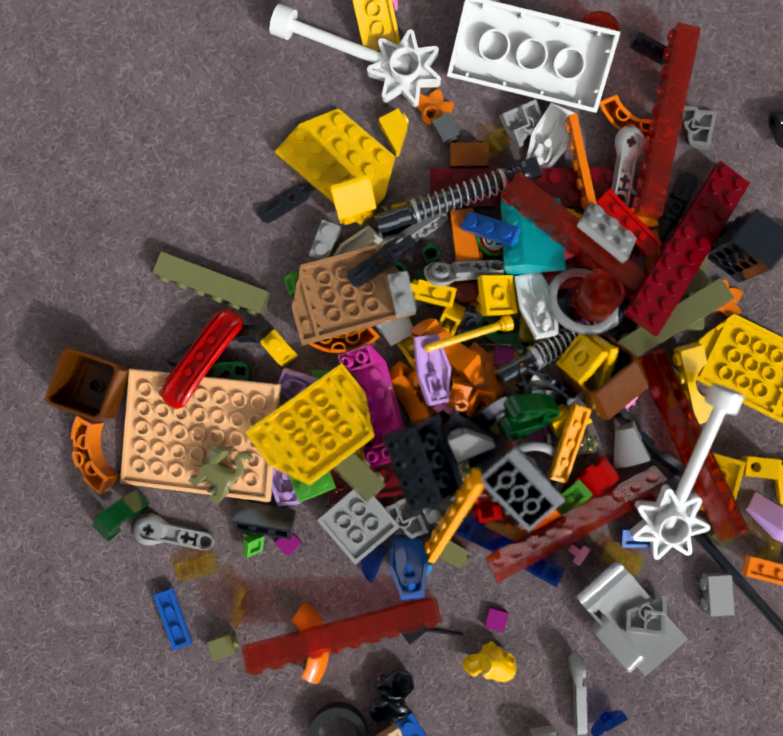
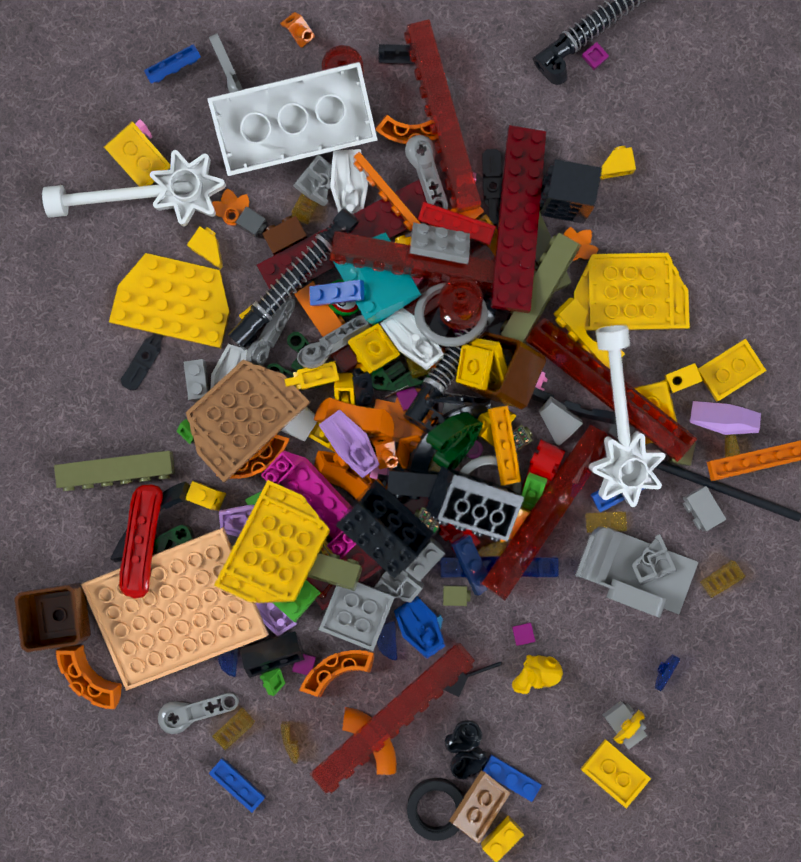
camera: 30 degrees left, 0 degrees up
(111, 519) = (135, 725): dark green connector -> none
(218, 473) = (210, 634): olive animal -> none
(223, 508) = (228, 662): none -> clear blue plate
(223, 645) = (294, 784): olive brick -> none
(313, 559) = (334, 666): none -> orange brick
(353, 199) = (203, 330): yellow slope -> none
(371, 267) = (250, 382): black piece -> none
(401, 294) = (288, 392): light grey brick -> none
(455, 513) = (434, 559): light orange plate -> none
(468, 443) = (414, 492): light grey slope -> none
(484, 533) = (471, 563): none -> dark blue plate
(504, 324) = (393, 369): yellow piece -> none
(578, 672) = (616, 641): light grey beam -> none
(580, 554) = (566, 538): bright pink tile -> none
(699, 126) = (476, 102): light grey slope -> none
(702, 672) = (733, 580): none -> clear yellow slope

